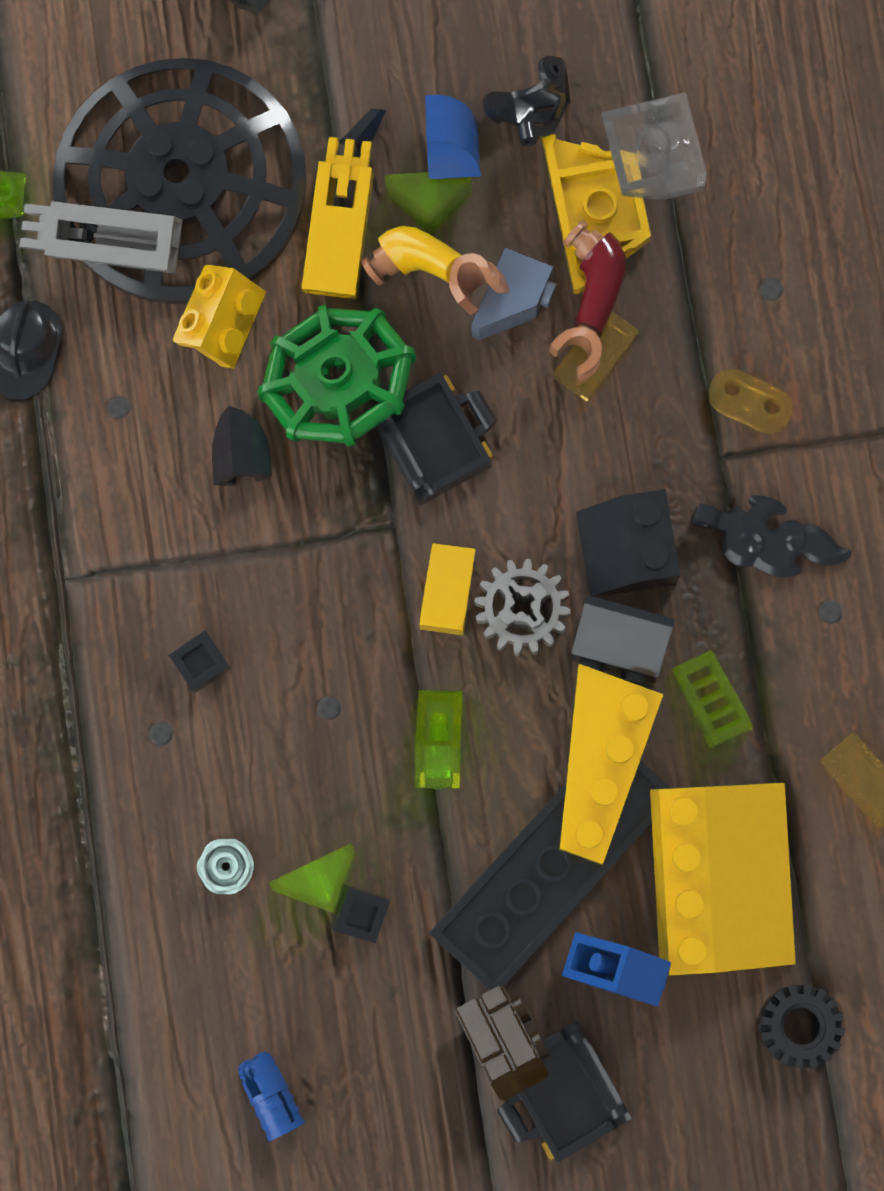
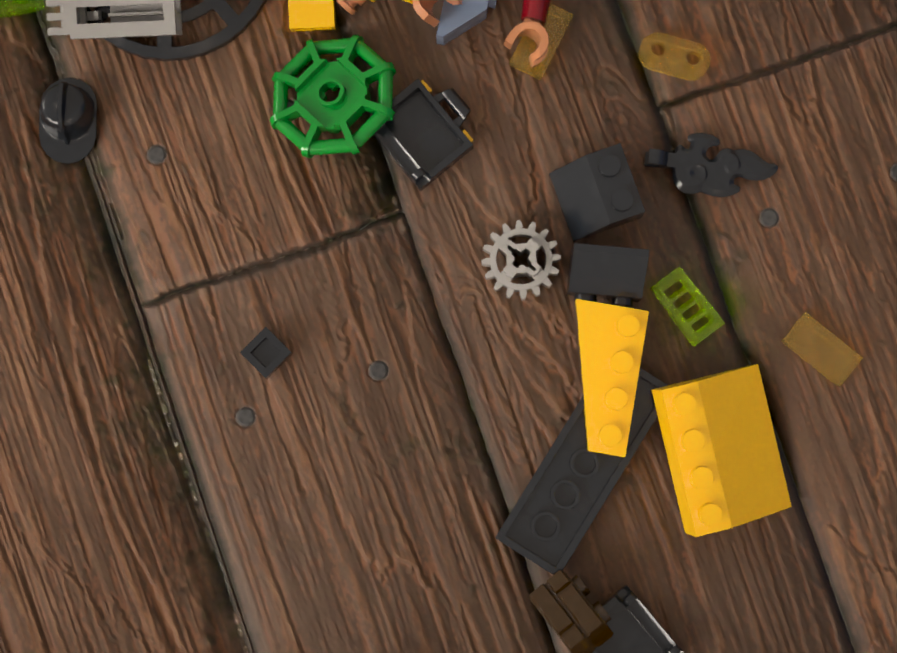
camera: 15 degrees left, 5 degrees up
(215, 855) = (308, 512): light aqua plate -> none
(220, 314) = (226, 62): yellow bracket -> none
(239, 449) = (264, 171): black brick -> none
(319, 881) = (399, 514): clear neon green slope -> none
(360, 913) = (436, 532): black plate -> none
(438, 739) = (473, 380): clear neon green slope -> none
(447, 589) = (456, 256): yellow slope -> none
(617, 969) = (652, 539): blue brick -> none
(829, 1022) = (827, 549): black tyre -> none

